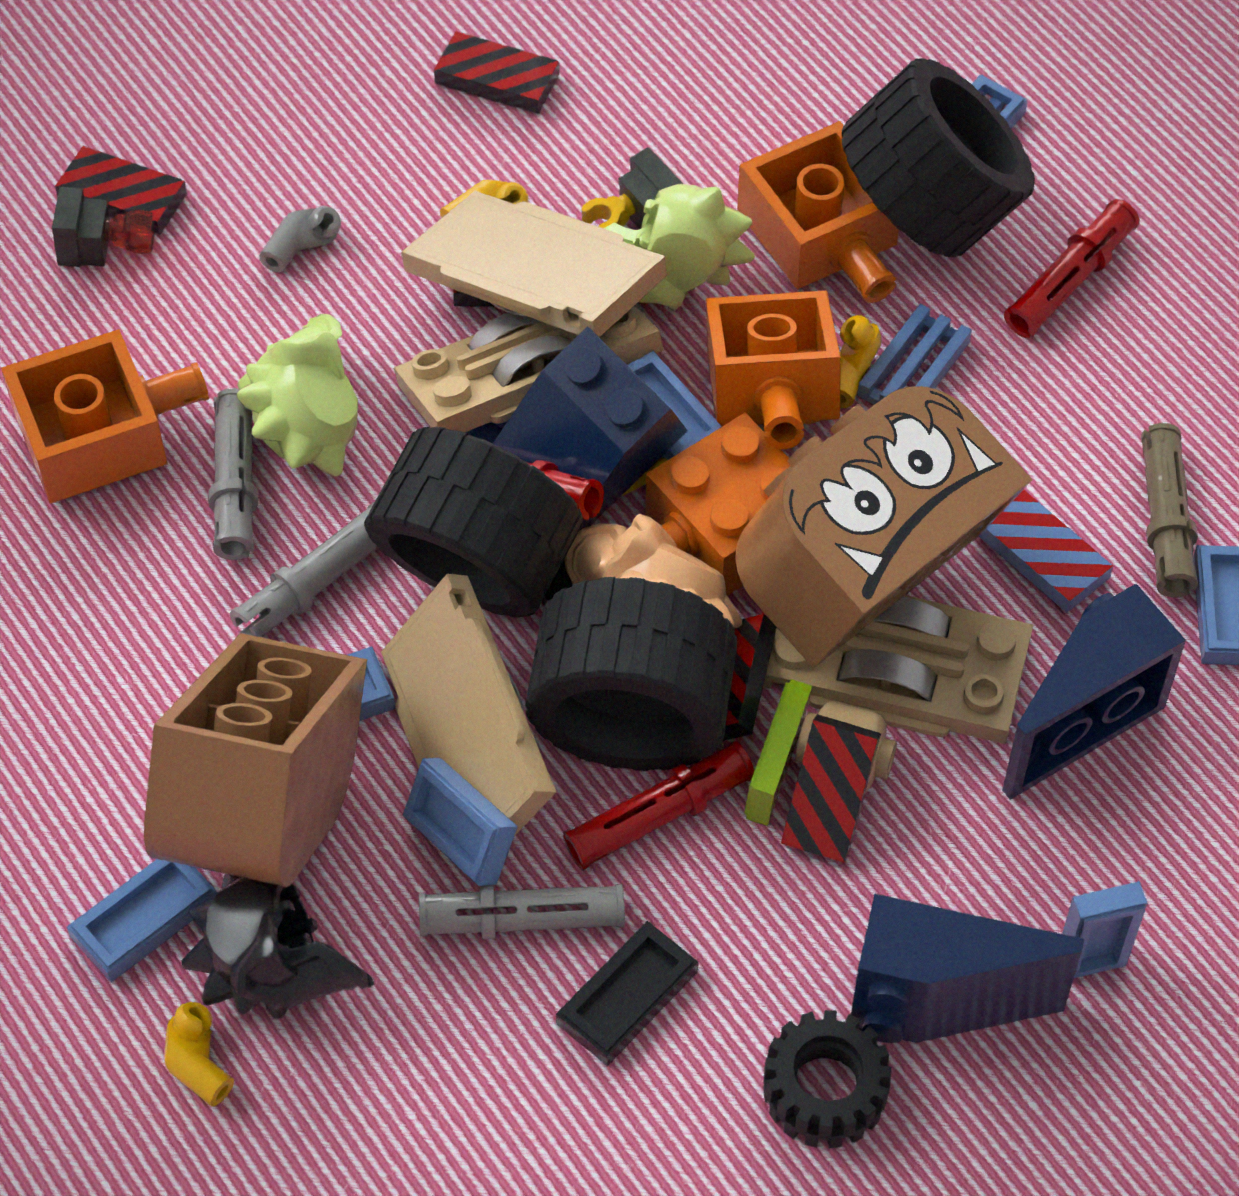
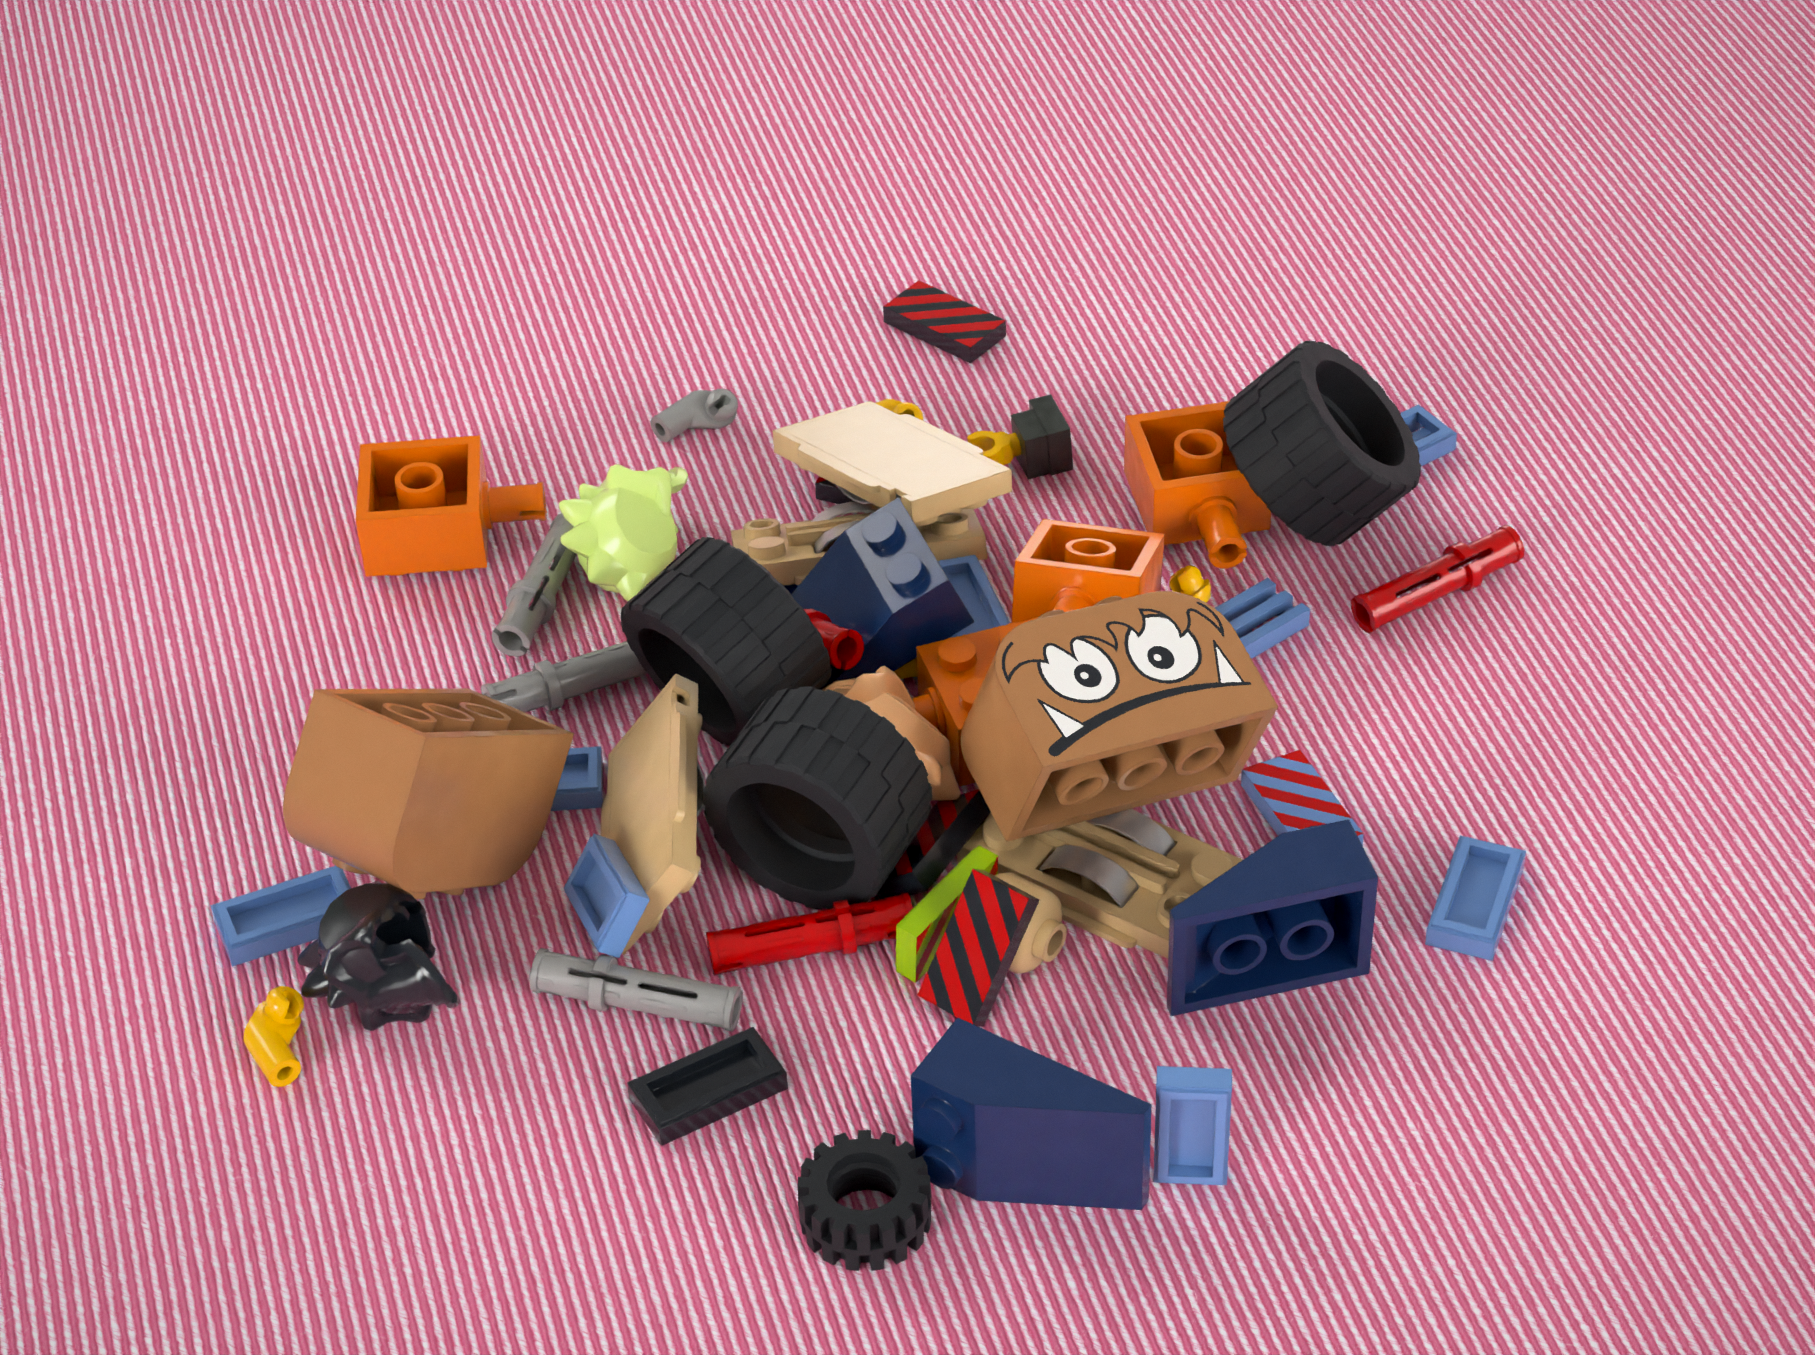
camera: 20 degrees right, 15 degrees down
(85, 229) = (502, 370): pearl dark grey piece -> none
(124, 185) = (552, 349): tile -> none
(694, 236) = (1051, 474): yellowish green head -> none
(1170, 527) = (1439, 815): dark tan pin -> none

